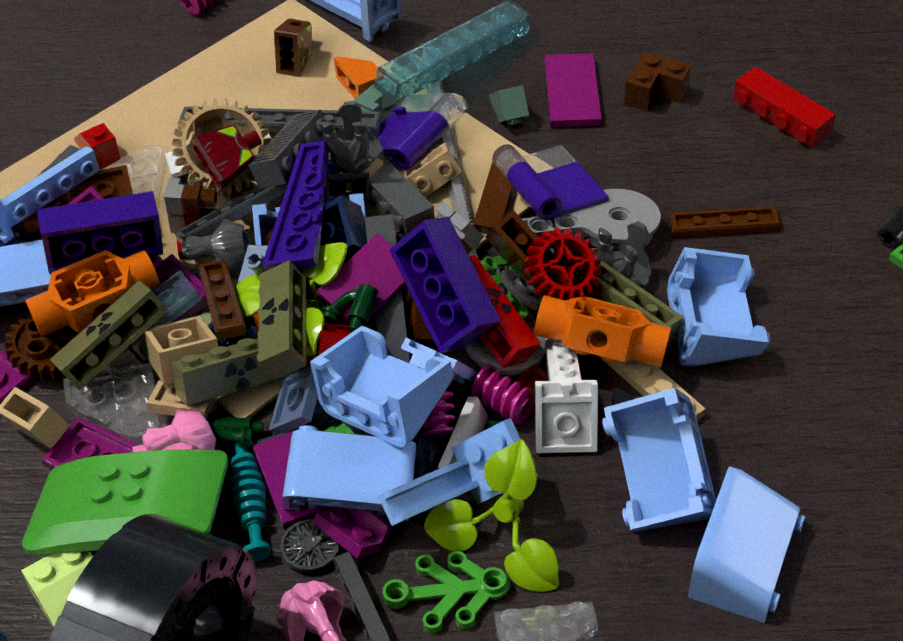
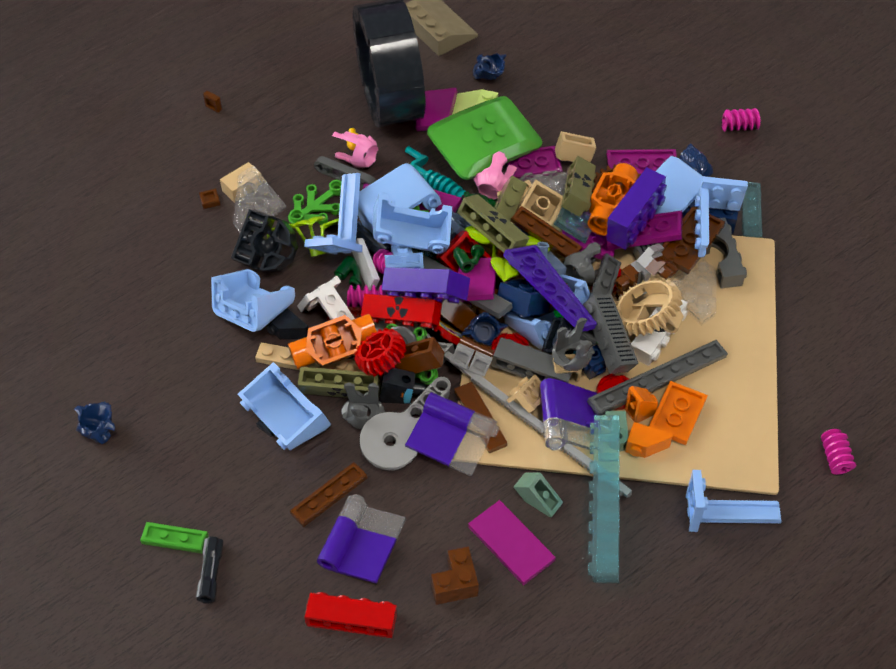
camera: 140 degrees right, 5 degrees up
(102, 142) = (741, 294): red slope -> none
(154, 174) = (657, 263): none -> reddish brown hips
(225, 153) = (632, 291): dark red torso -> none
(292, 38) = (714, 433): reddish brown torso -> none
(300, 85) = (679, 411): none -> orange plate
(329, 93) = (640, 404): none -> orange slope
(581, 526) = (261, 247): none -> black connector
(723, 160) = (360, 540): none -> dark purple door
(744, 547) = (186, 294): light blue windscreen -> none

